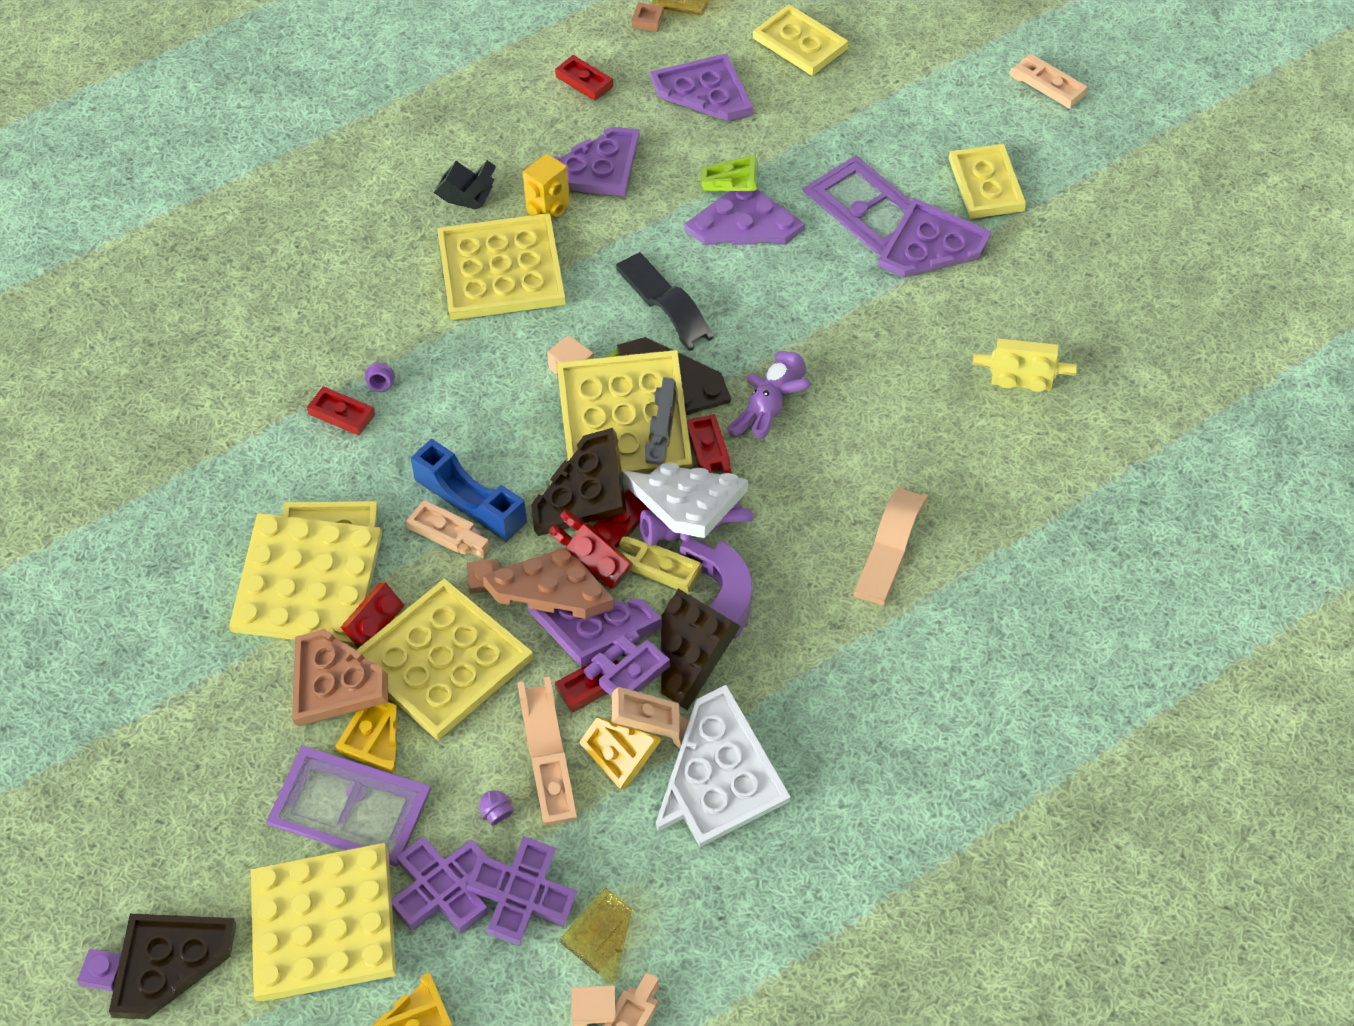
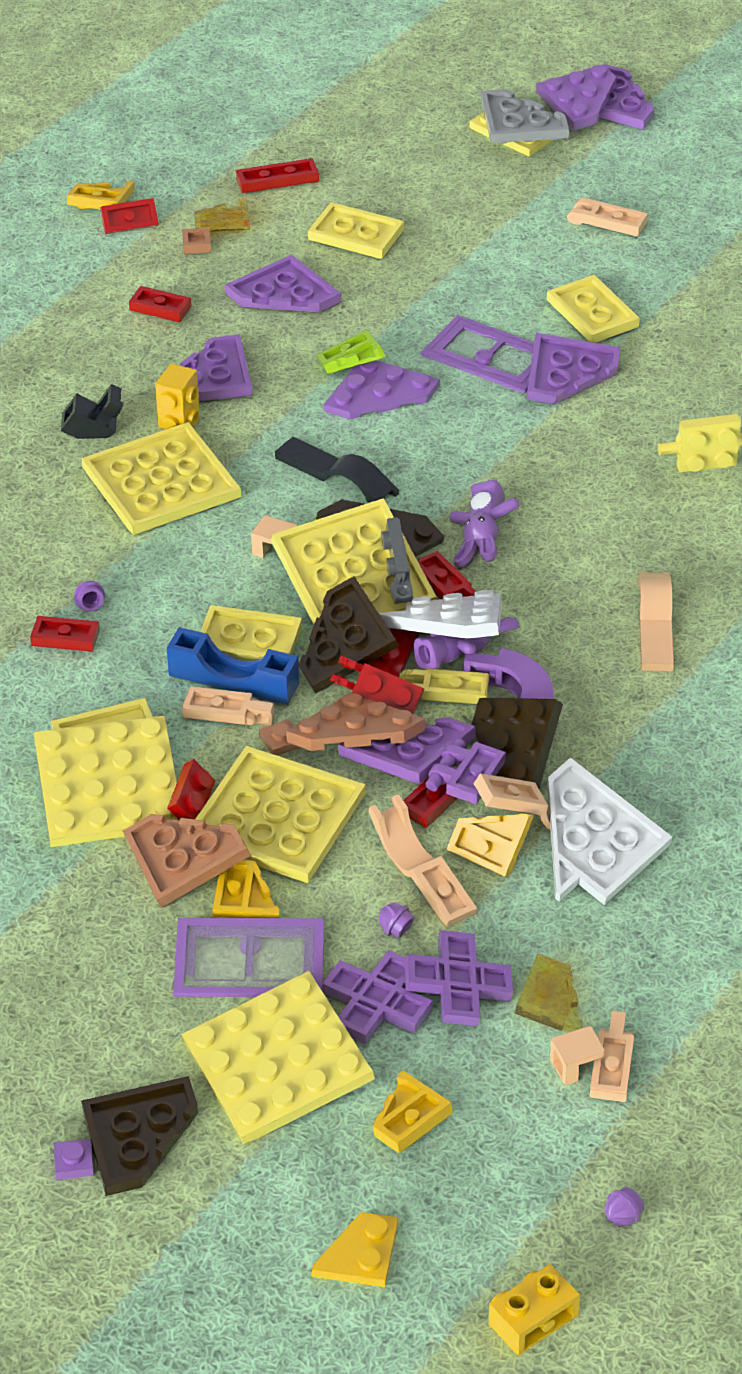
camera: 20 degrees left, 10 degrees down
(503, 458) = (249, 633): none -> light yellow plate

